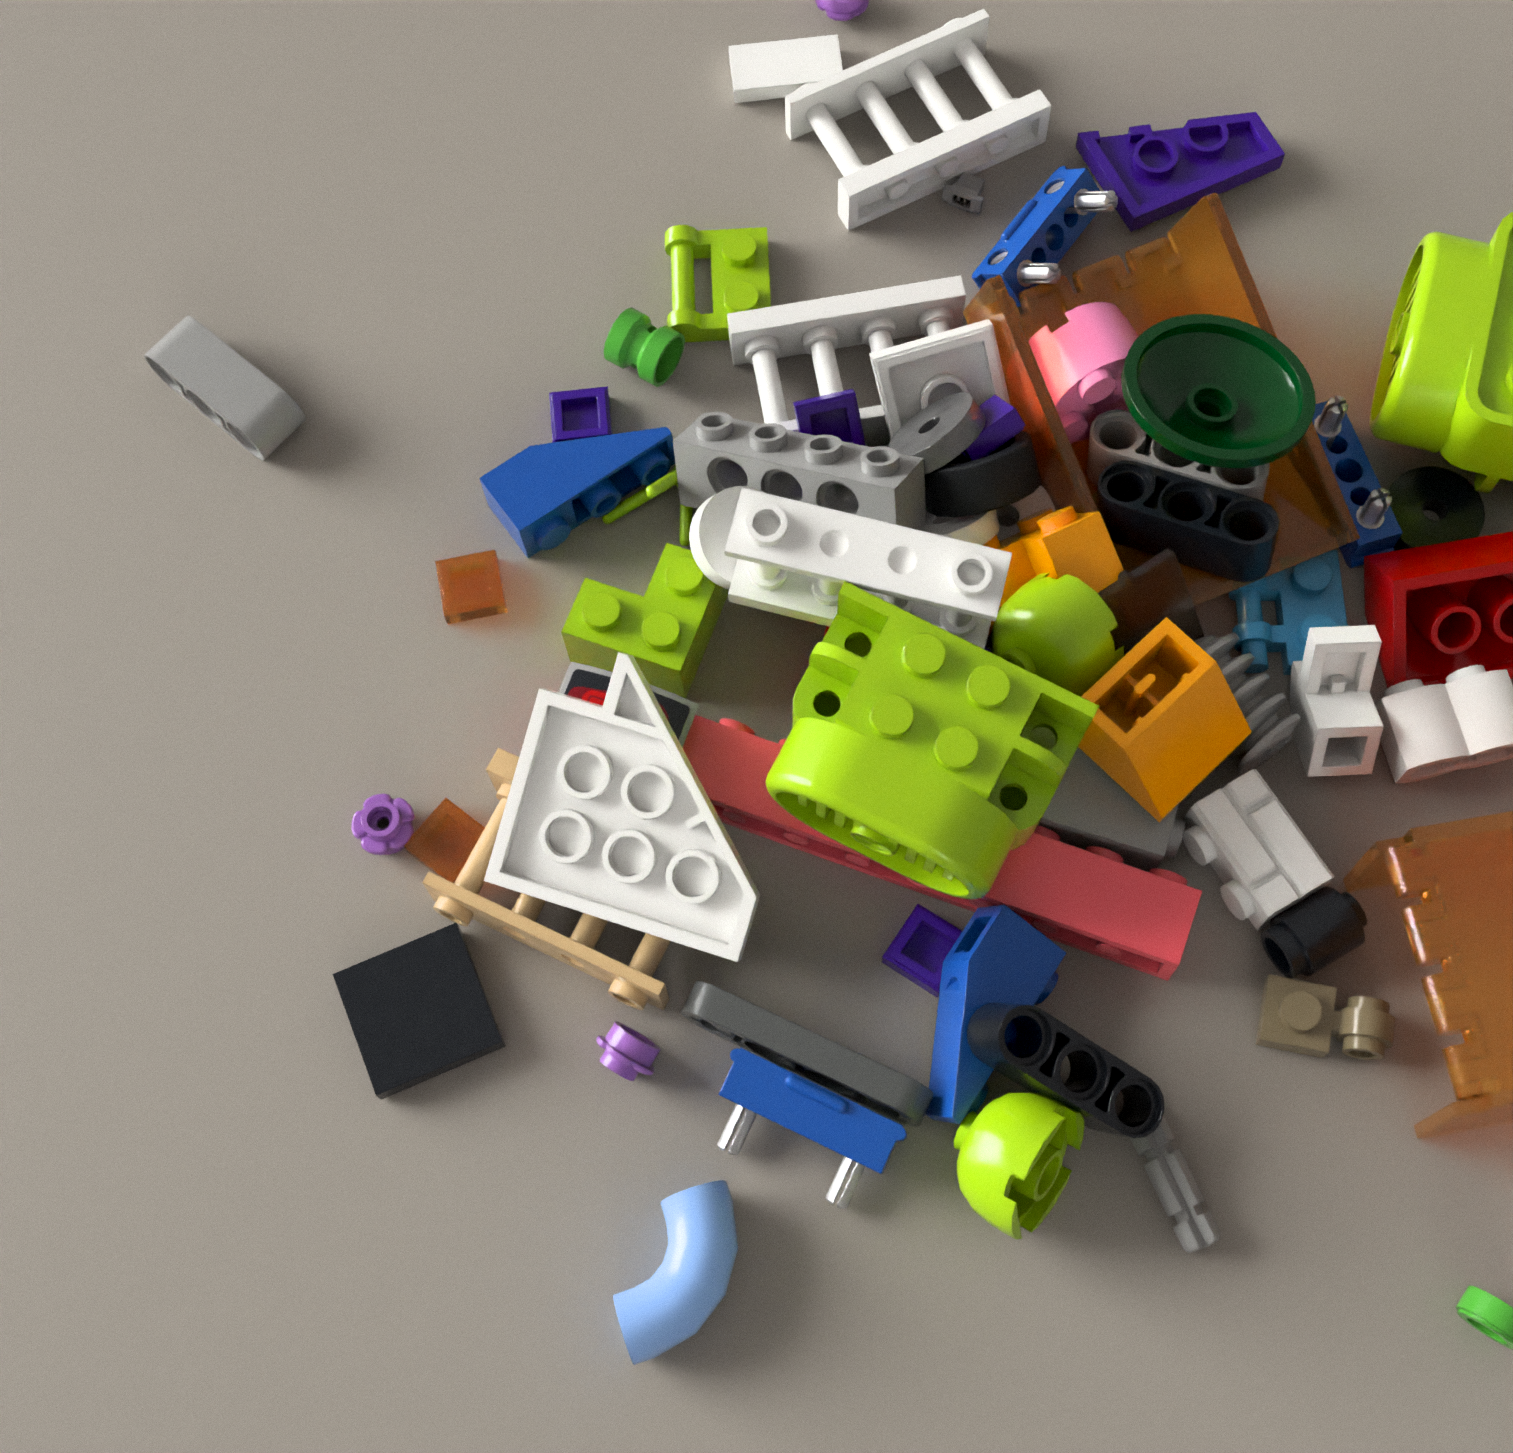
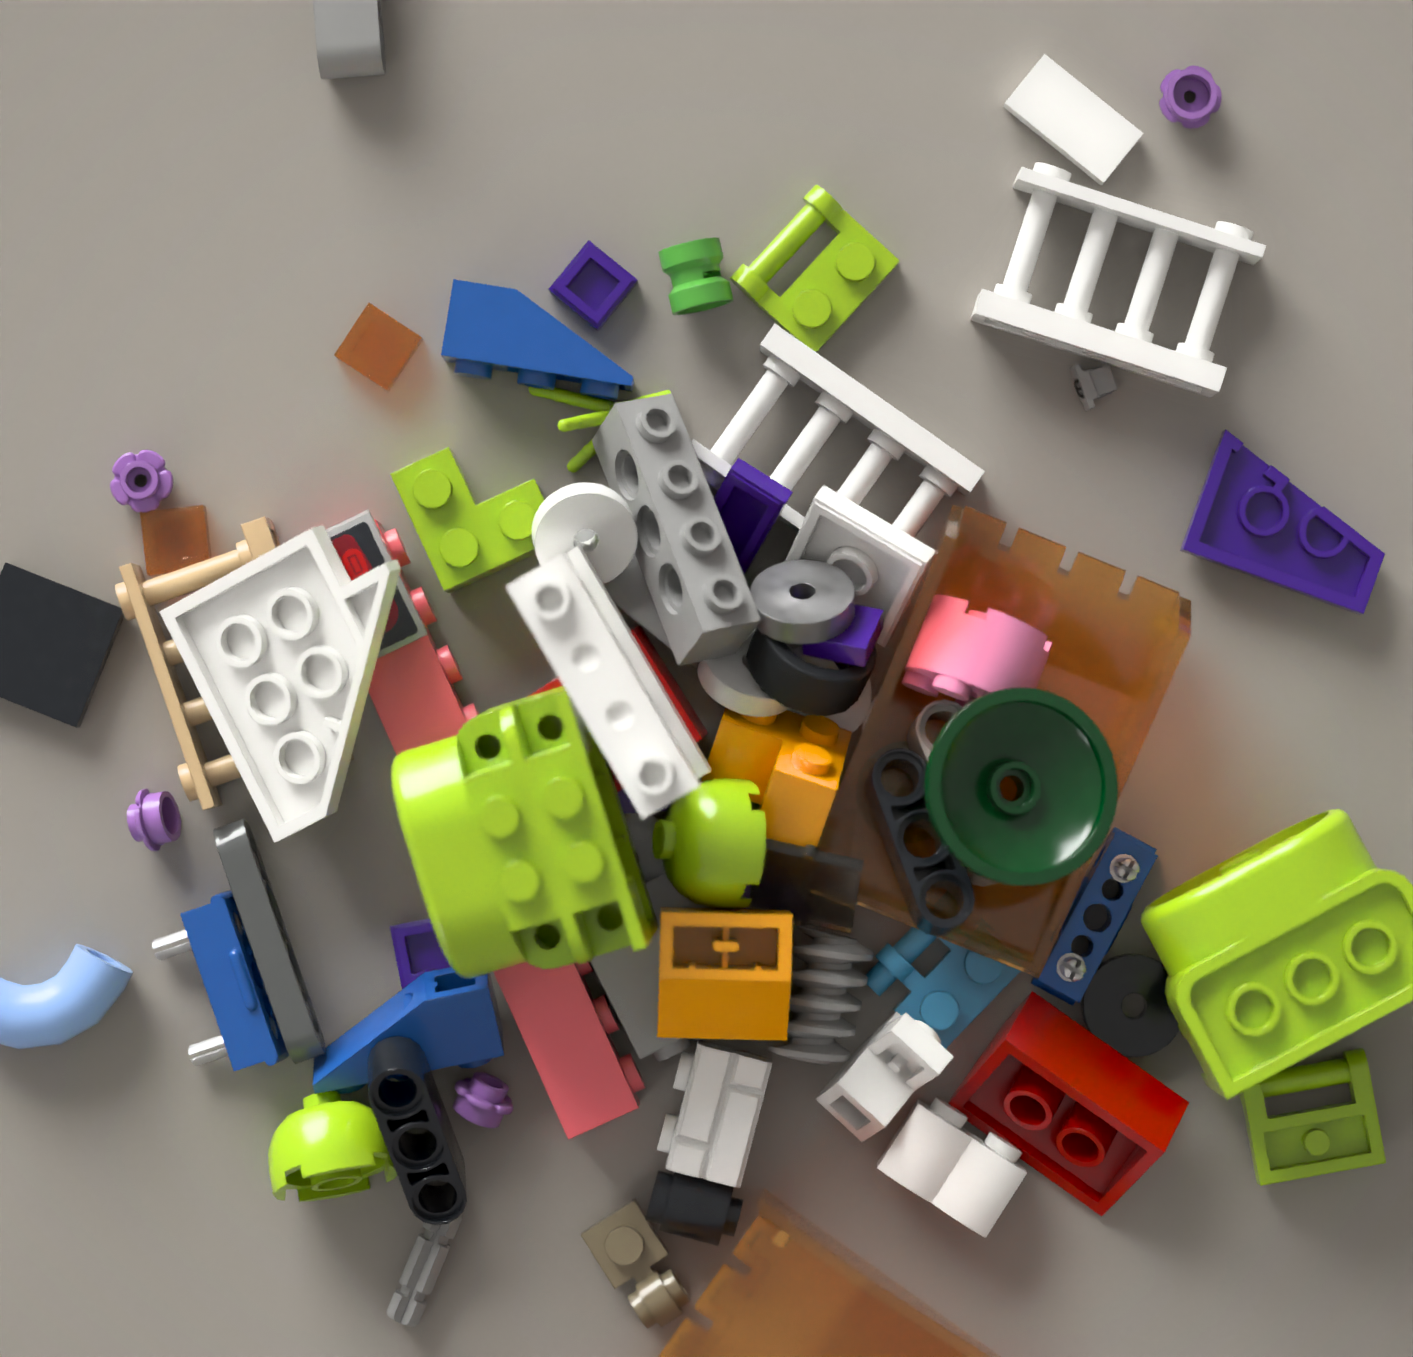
camera: 40 degrees right, 20 degrees up
(1045, 231) = (1094, 492): blue piece -> none
(1085, 1009) = (482, 1100): none -> medium lavender plate

